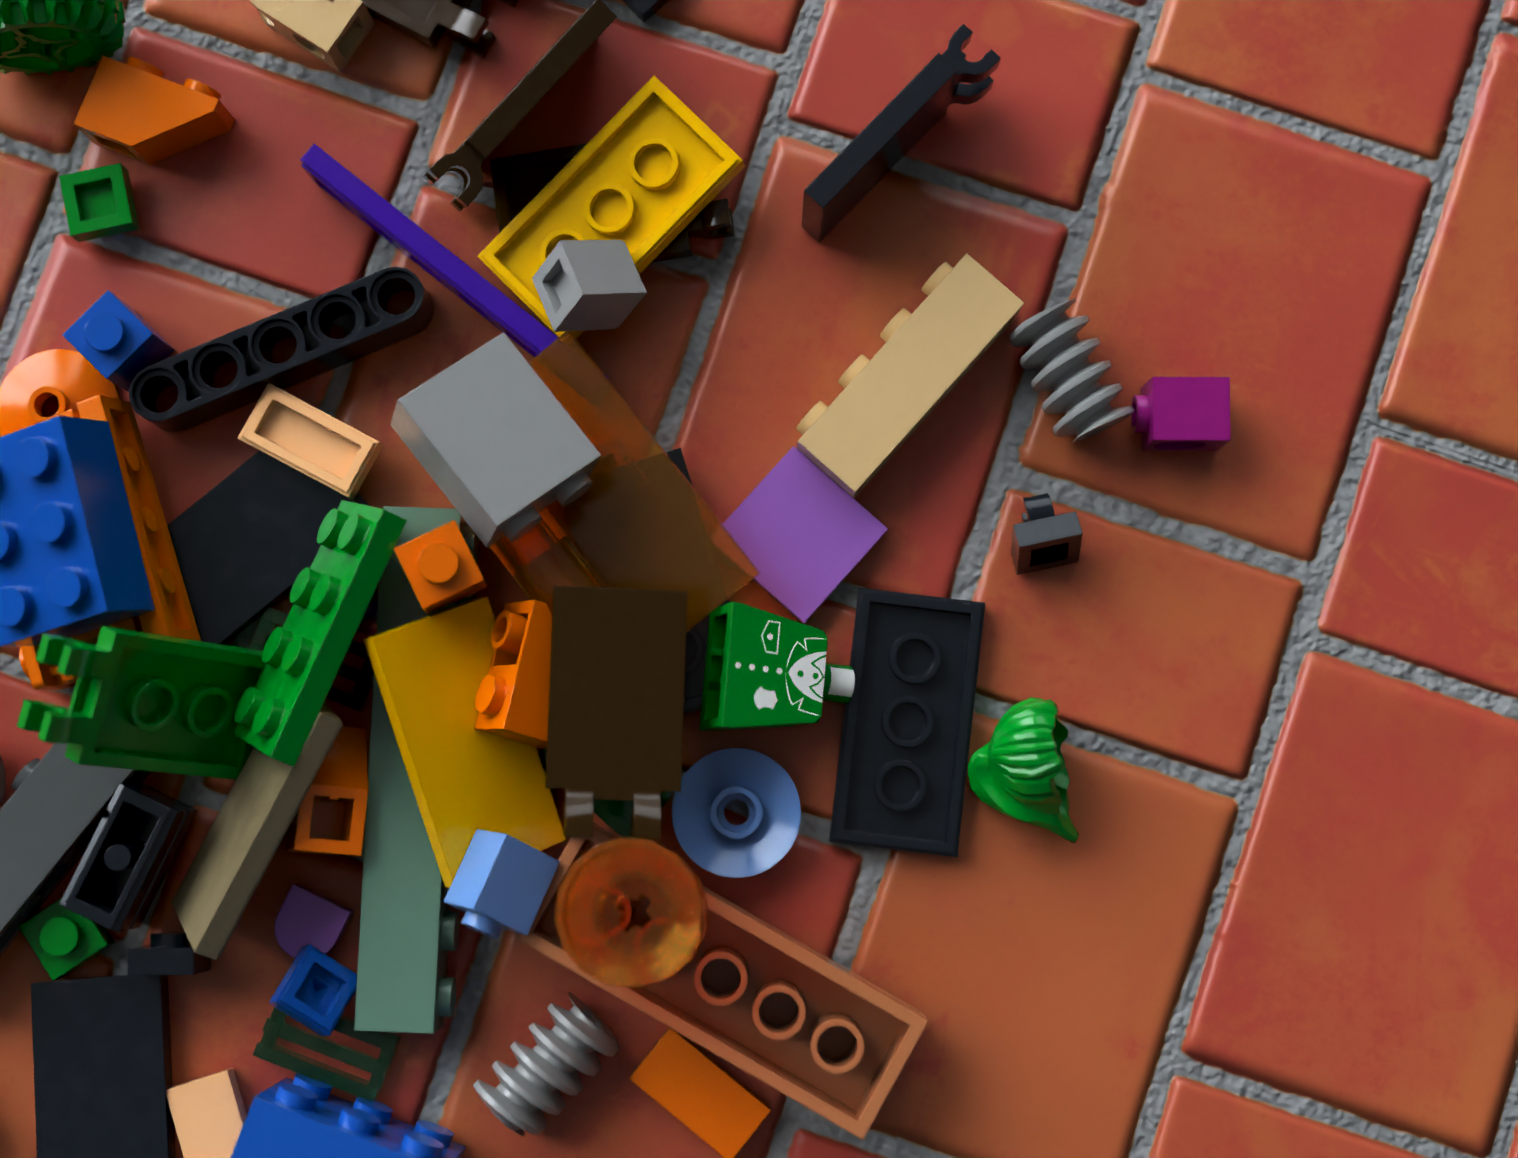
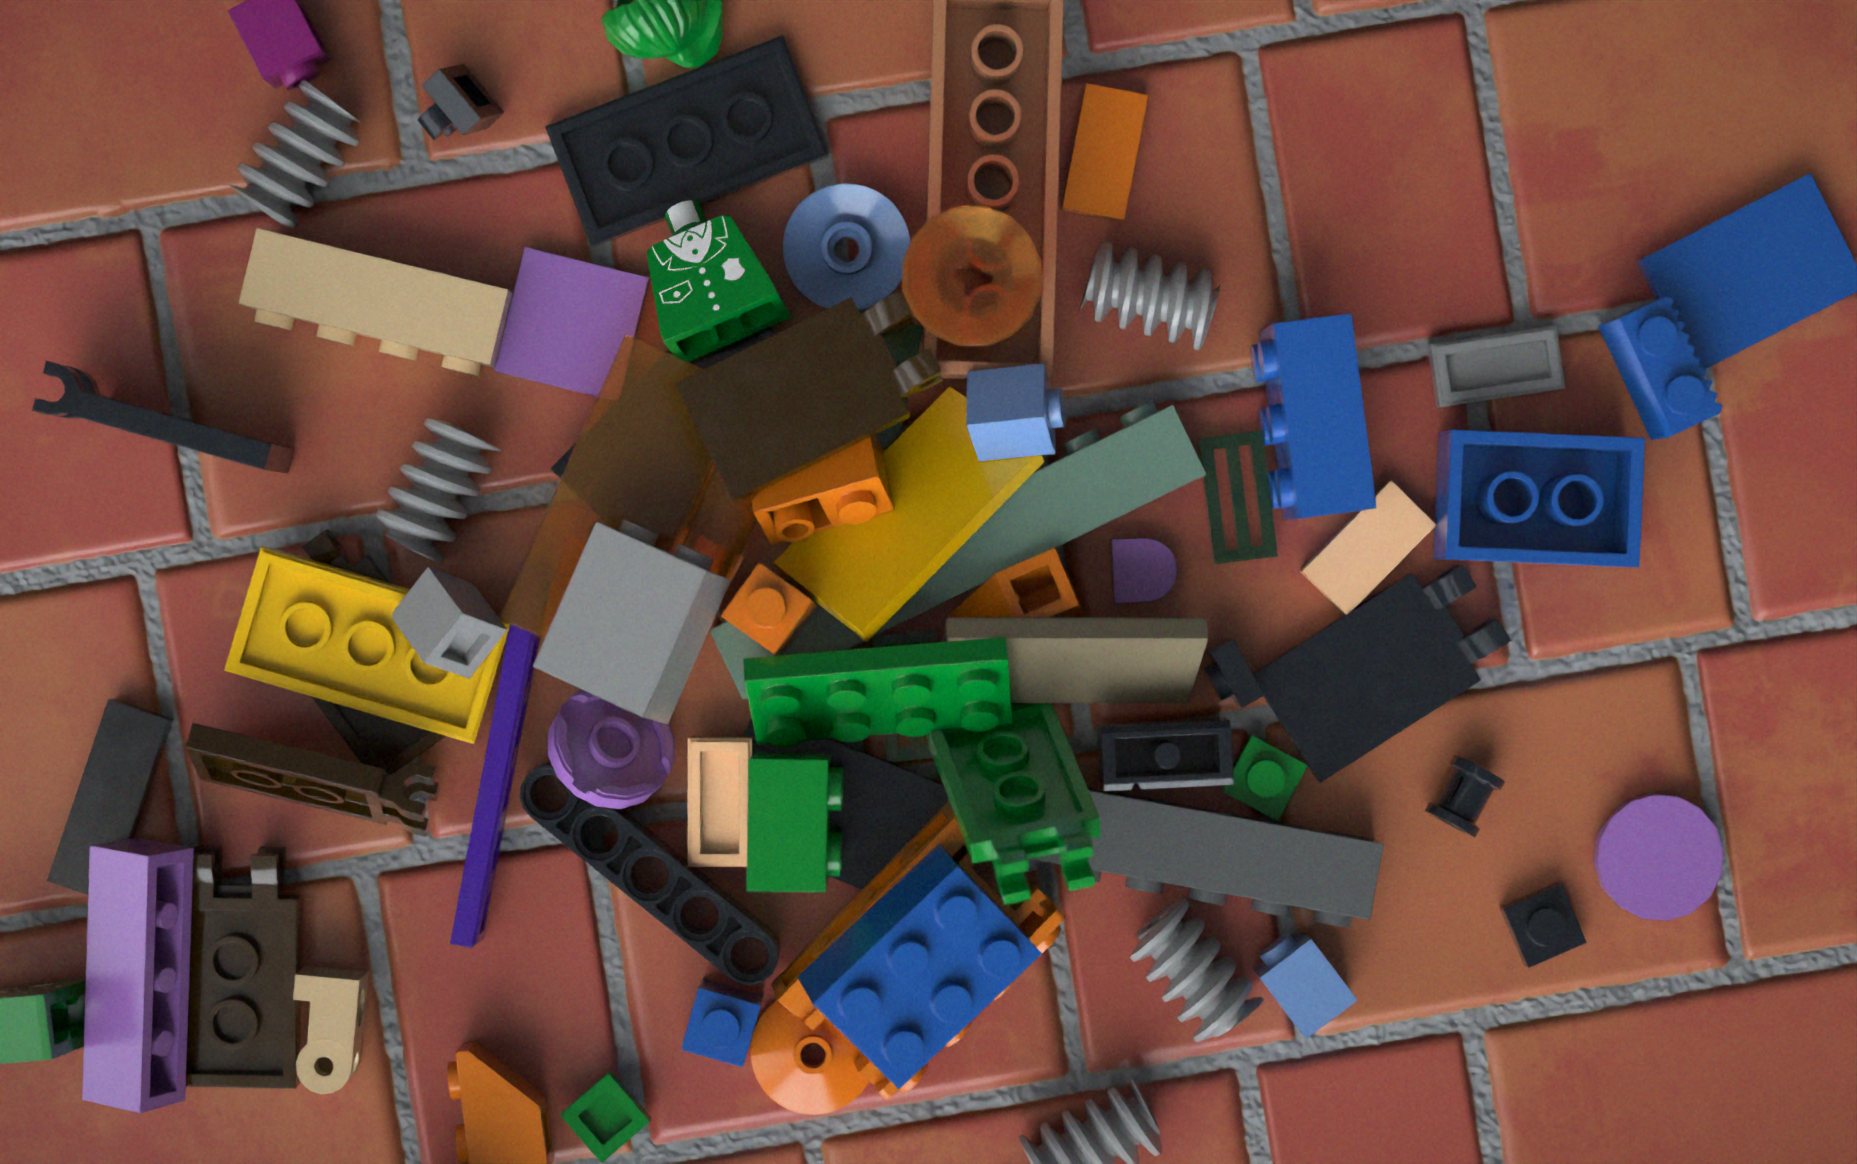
camera: 125 degrees left, 5 degrees up
(237, 482) = (791, 821): none -> green brick
(315, 990) = (1192, 529): blue tile -> none
(397, 356) = (609, 752): none -> medium lavender tile
(714, 340) = (436, 488): none -> light grey piece

